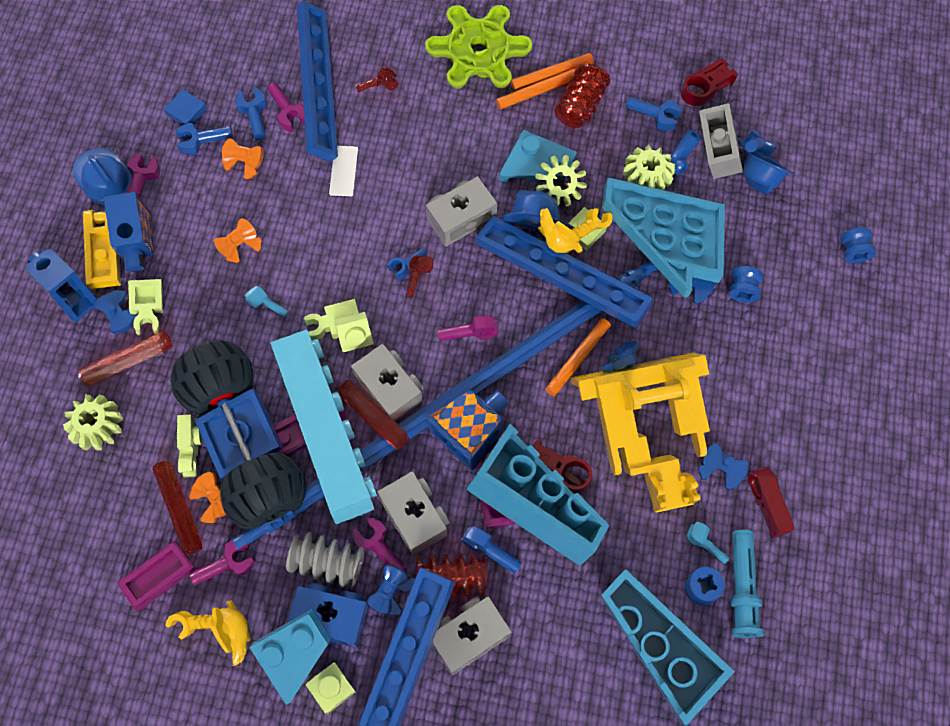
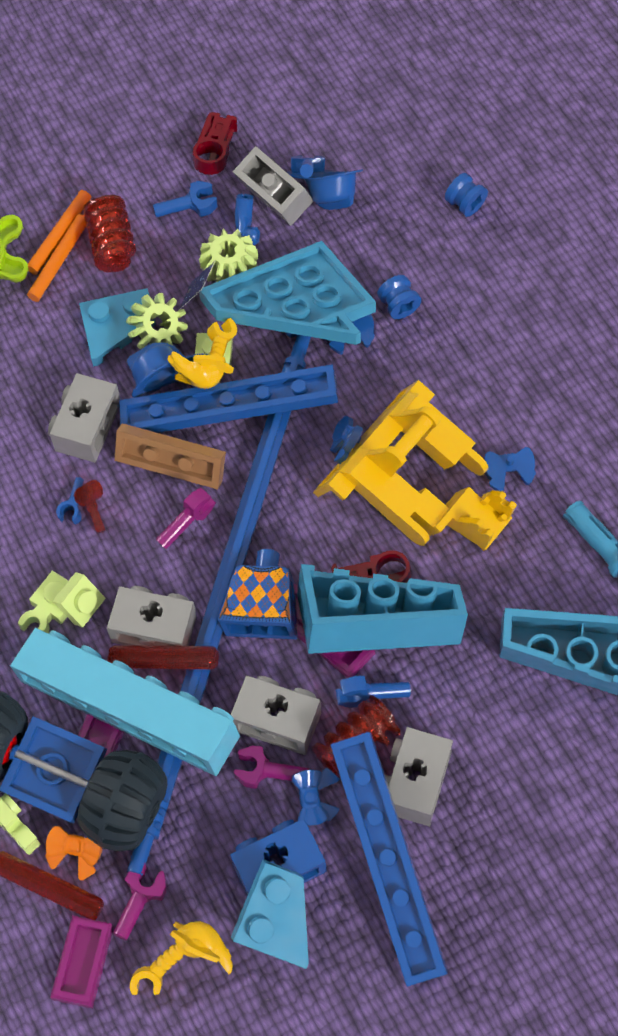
camera: 35 degrees left, 5 degrees down
(324, 560) = (233, 814): light grey piece -> none
(330, 688) = (332, 923): yellowish green plate -> none
(493, 279) = (169, 456): none -> medium nougat plate
(577, 357) = (304, 469): orange bar -> none
(610, 173) = (196, 285): none -> dark blue sticker
(698, 536) = (539, 542): dark azure hand -> none
(700, 591) = (576, 586): blue wheel -> none
(769, 498) = (572, 463): dark red piece -> none

